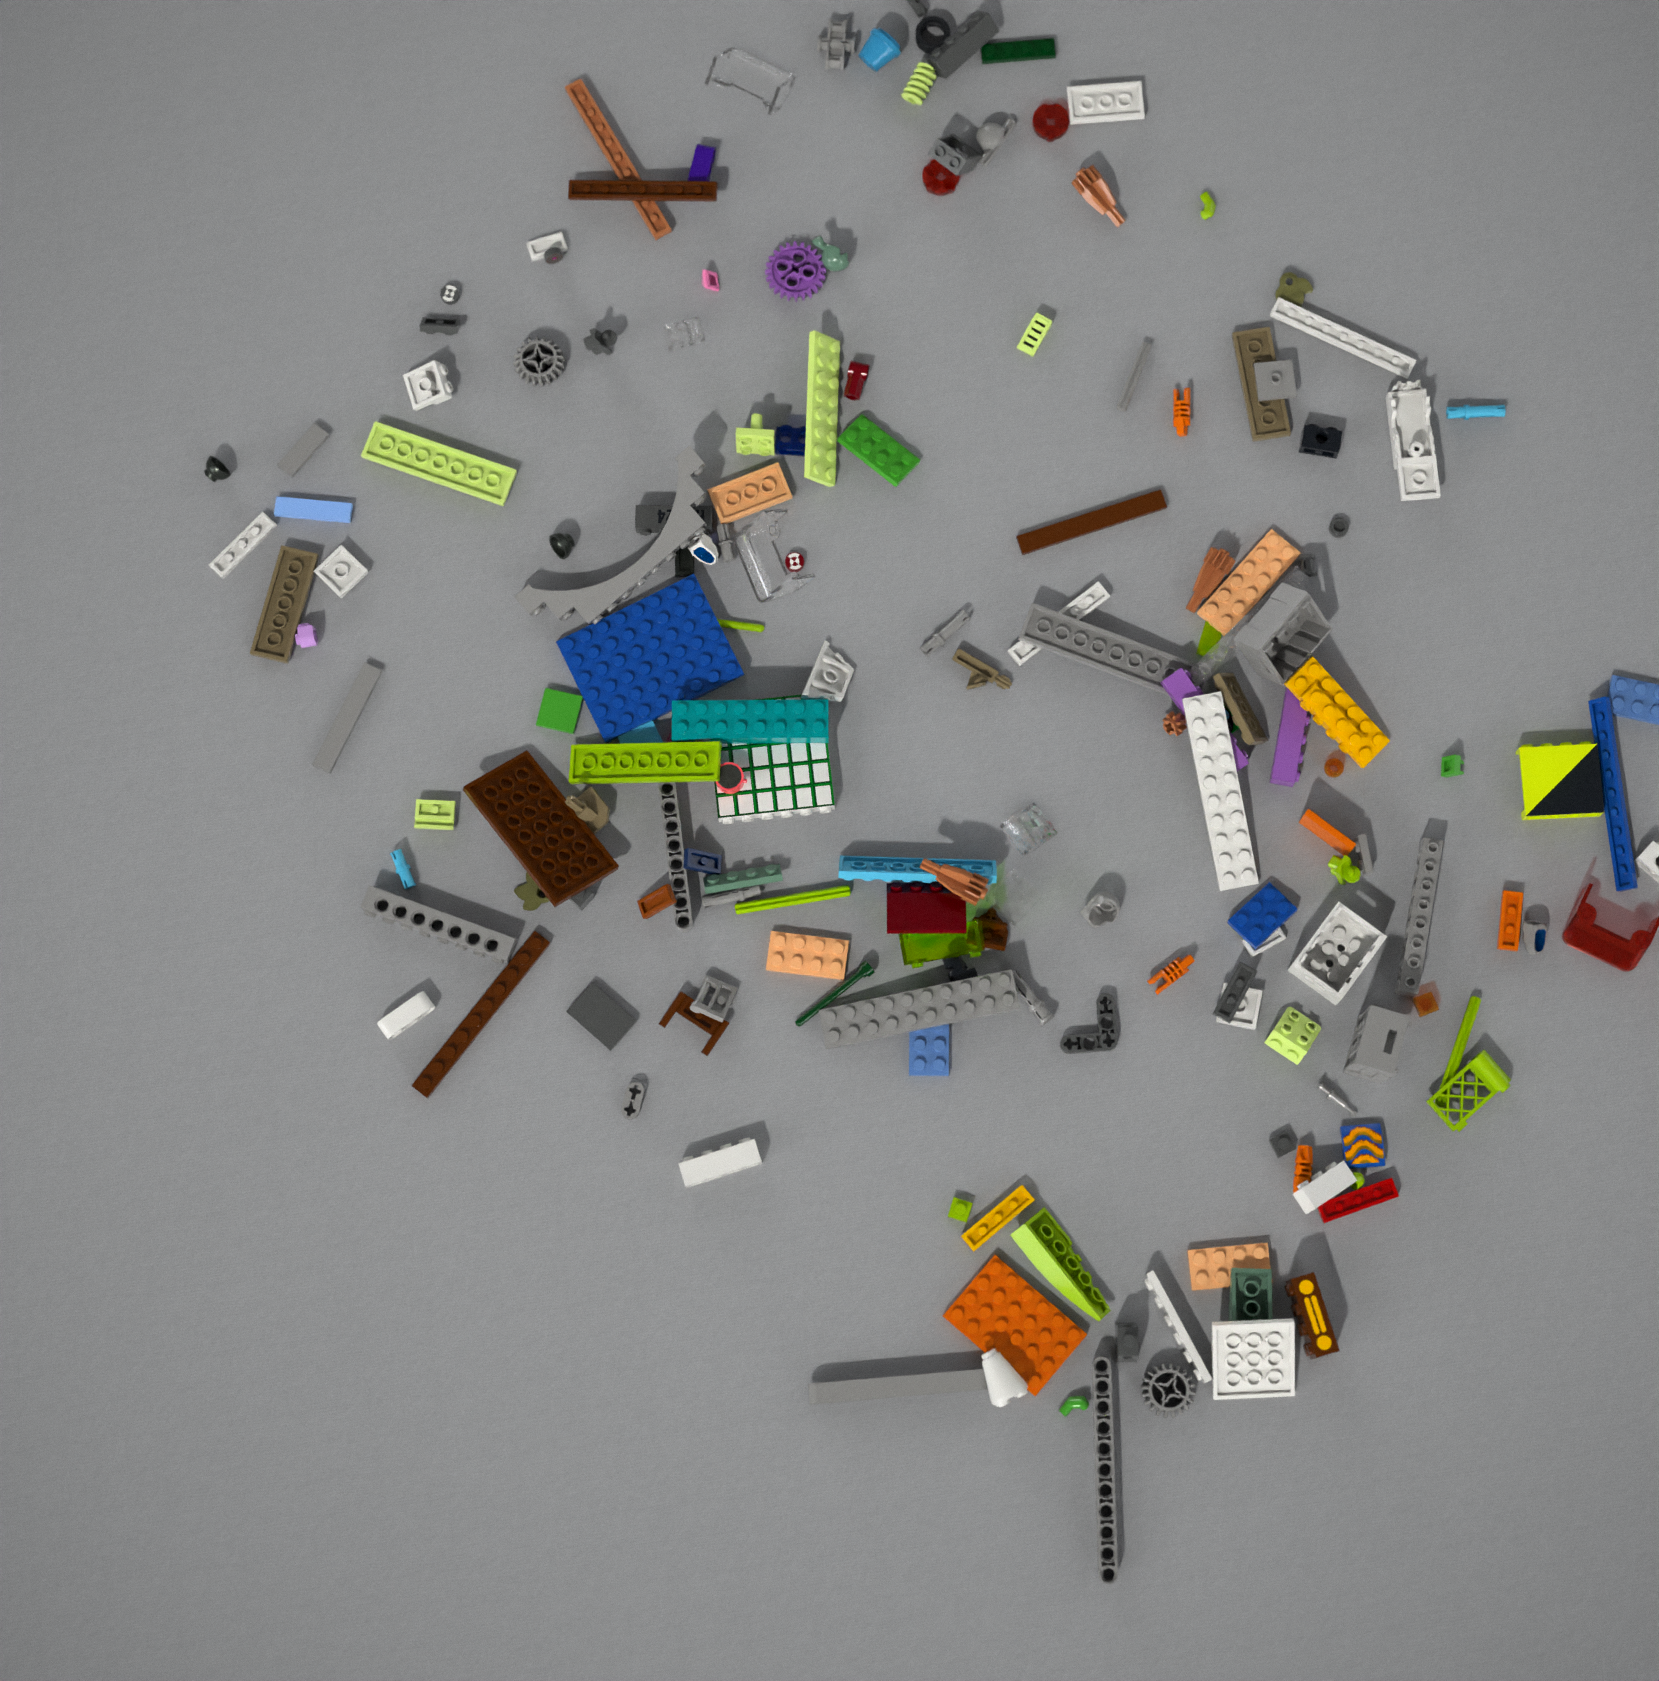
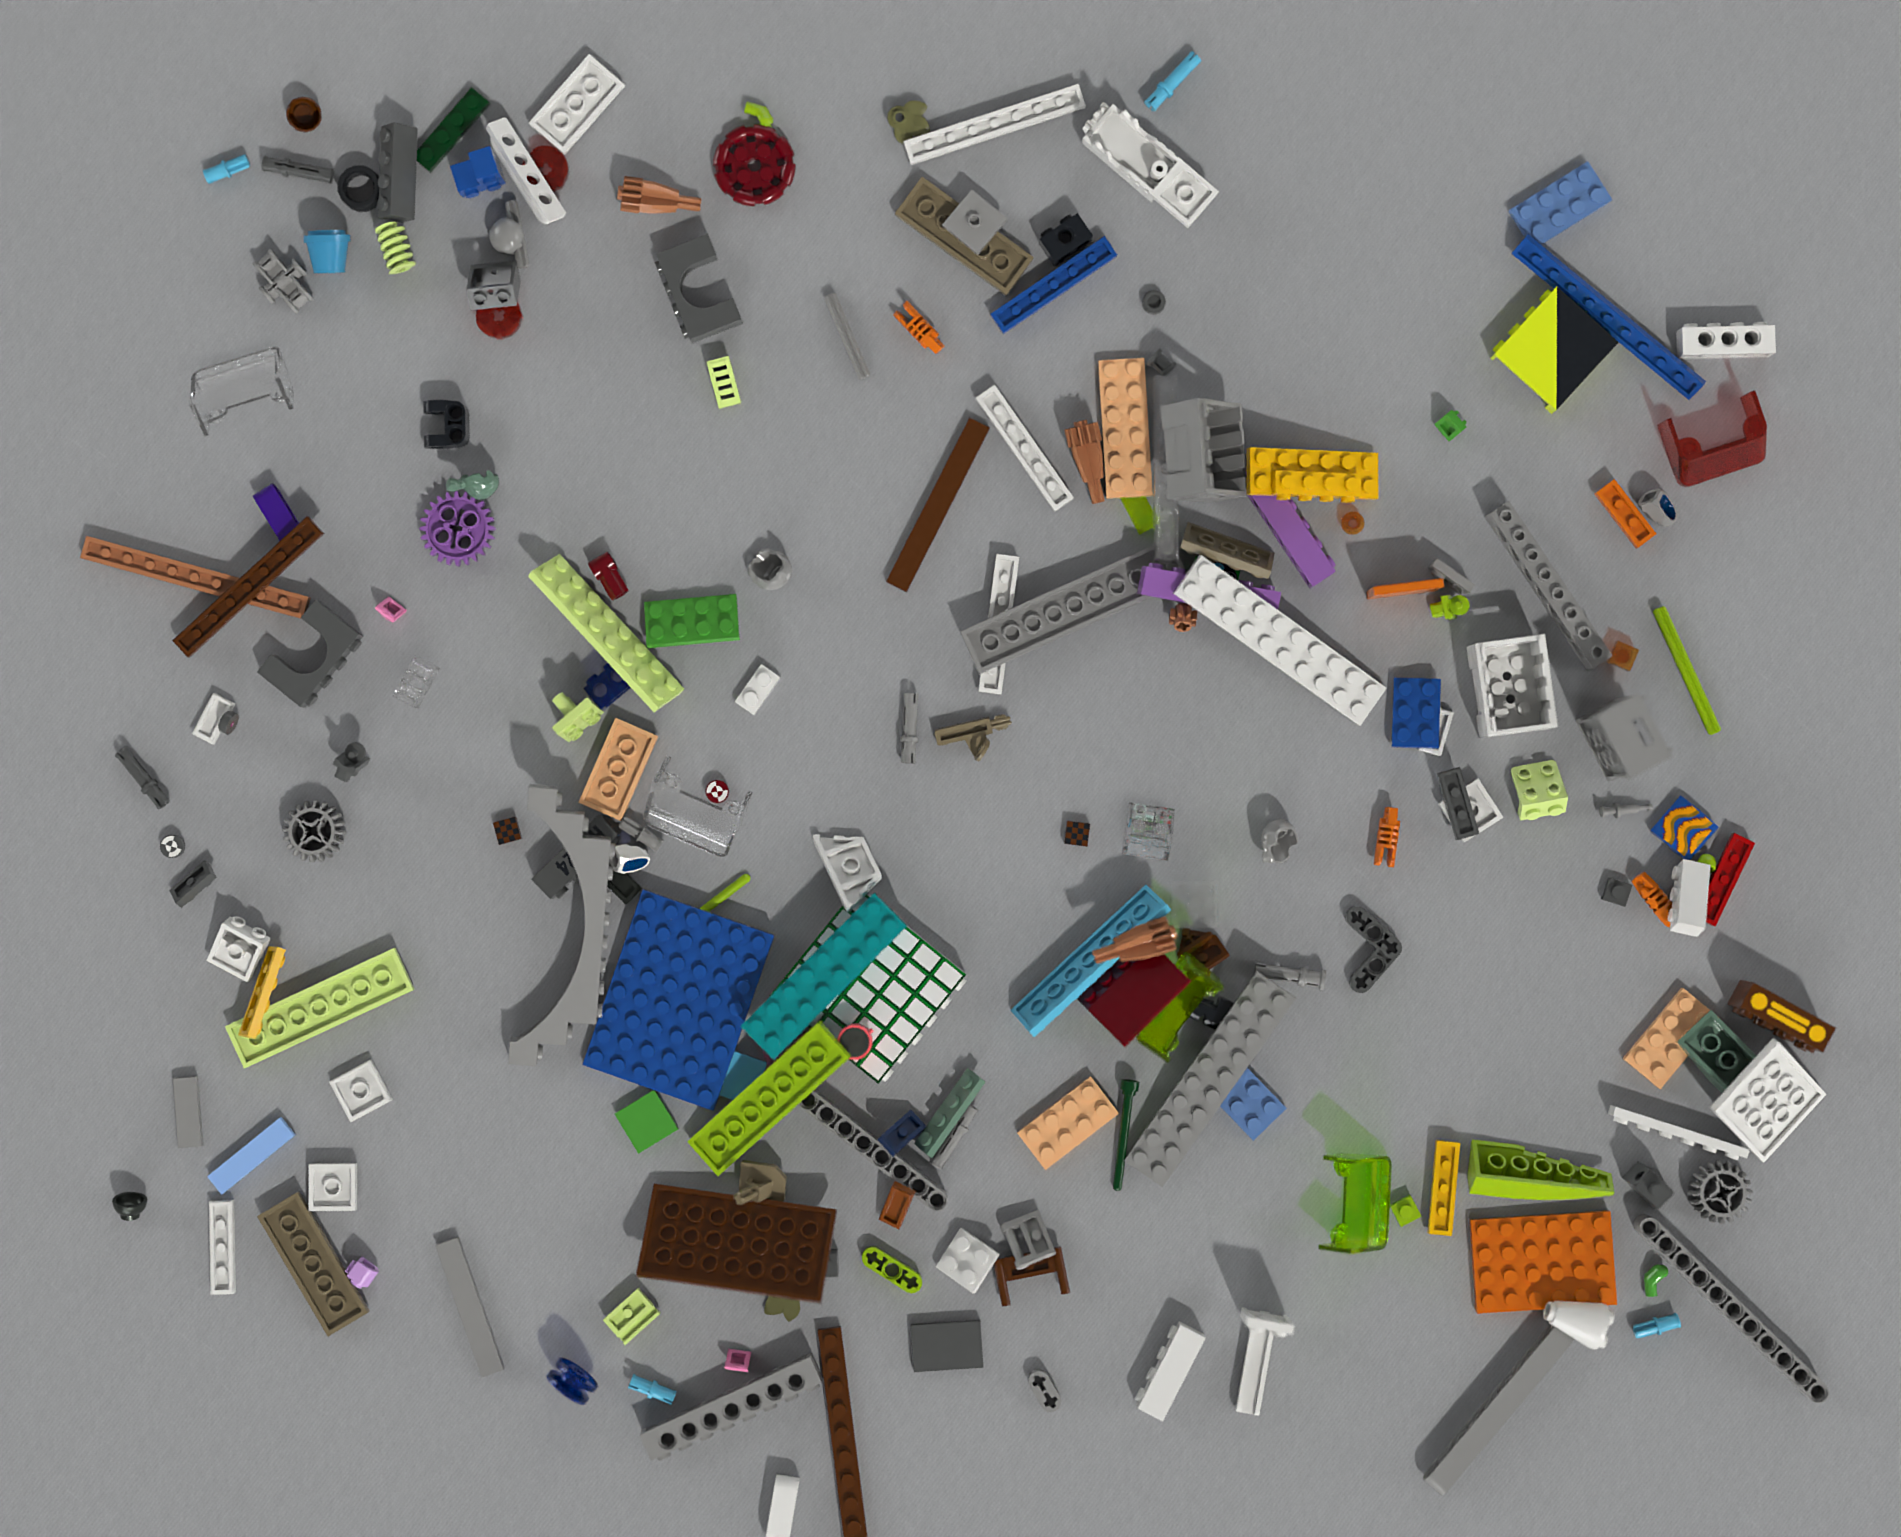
camera: 45 degrees left, 10 degrees up
(362, 815) = (572, 1381): none -> clear blue wheel
(408, 425) = (260, 997): none -> yellow plate
(413, 533) = (360, 1090): none -> white tile
(469, 901) = (737, 1360): none -> bright pink slope
(472, 242) = (144, 780): none -> dark grey pin
(561, 544) = (501, 974): pearl dark grey piece -> none
(617, 923) = (890, 1259): none -> lime beam
(649, 468) = (507, 830): none -> tile
(662, 272) = (340, 641): none -> dark grey arch
(665, 976) = (967, 1260): none -> white plate
(781, 1207) = (1261, 1330): none -> white bracket
(792, 899) = (1008, 1088): lime axle -> none
(851, 211) = (445, 408): none -> black piece
(877, 526) = (757, 689): none -> white plate
(942, 1178) = (1364, 1203): none -> clear neon green windscreen
(954, 464) = (770, 569): none -> light grey hair
(984, 790) = (1077, 833): none -> tile
(1009, 88) = (478, 173): none -> blue brick
(1025, 143) = (544, 212): none -> white piece
(1046, 1435) = (1656, 1326): none -> medium azure axle
(1072, 244) = (676, 265): none -> dark grey arch
(1176, 537) = (1024, 448): none -> white plate
(1178, 220) = (744, 155): none -> dark red plate
(1287, 461) = (1053, 285): none -> blue plate
(1490, 1076) = (1726, 665): lime piece -> none

